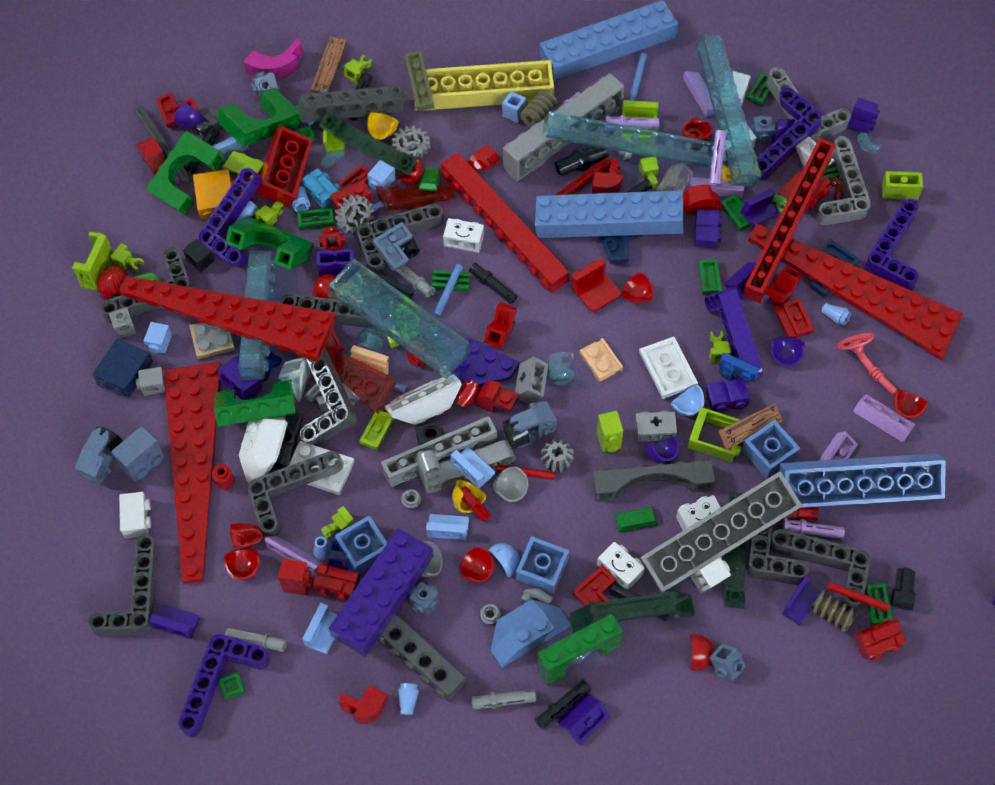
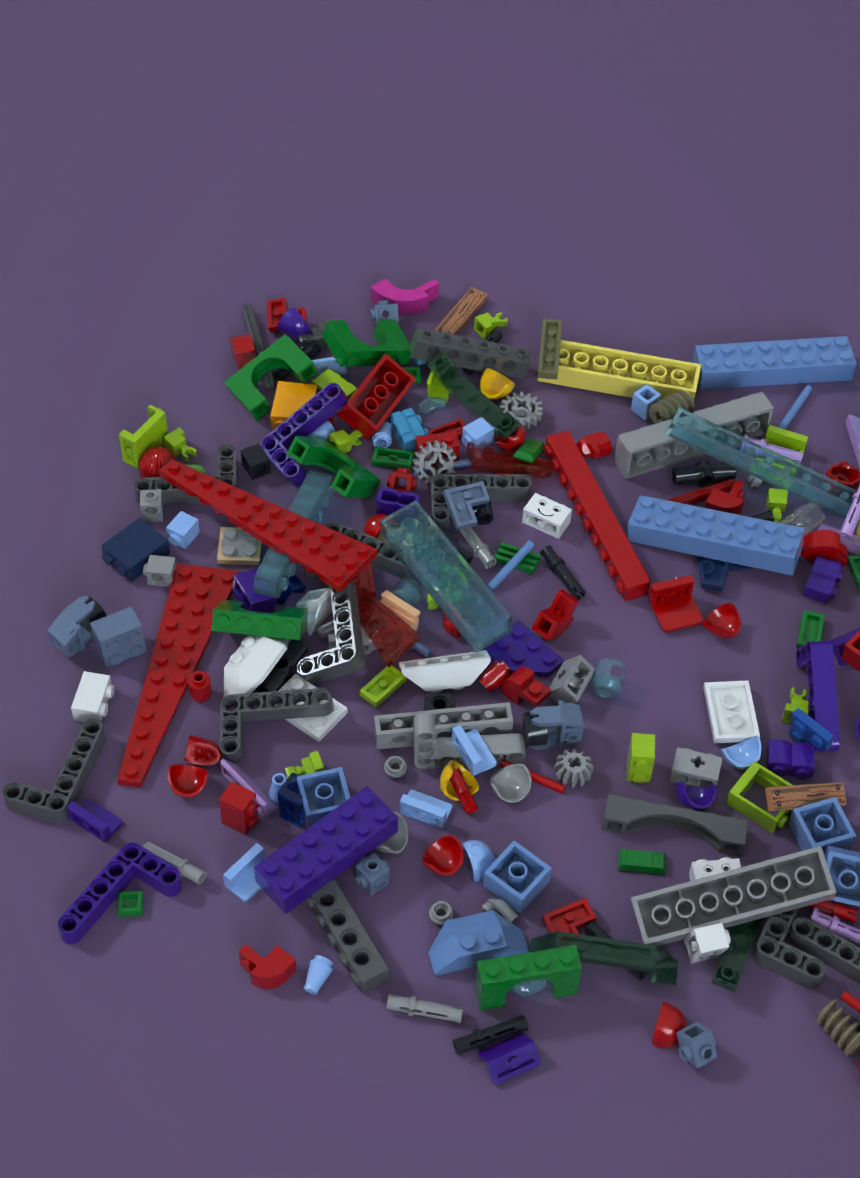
camera: 15 degrees right, 10 degrees down
(335, 582) = (278, 826): red brick -> none
(601, 360) = (657, 683): light nougat plate -> none
(621, 565) = (608, 904): white brick -> none
(801, 601) = (805, 1005): dark purple panel -> none

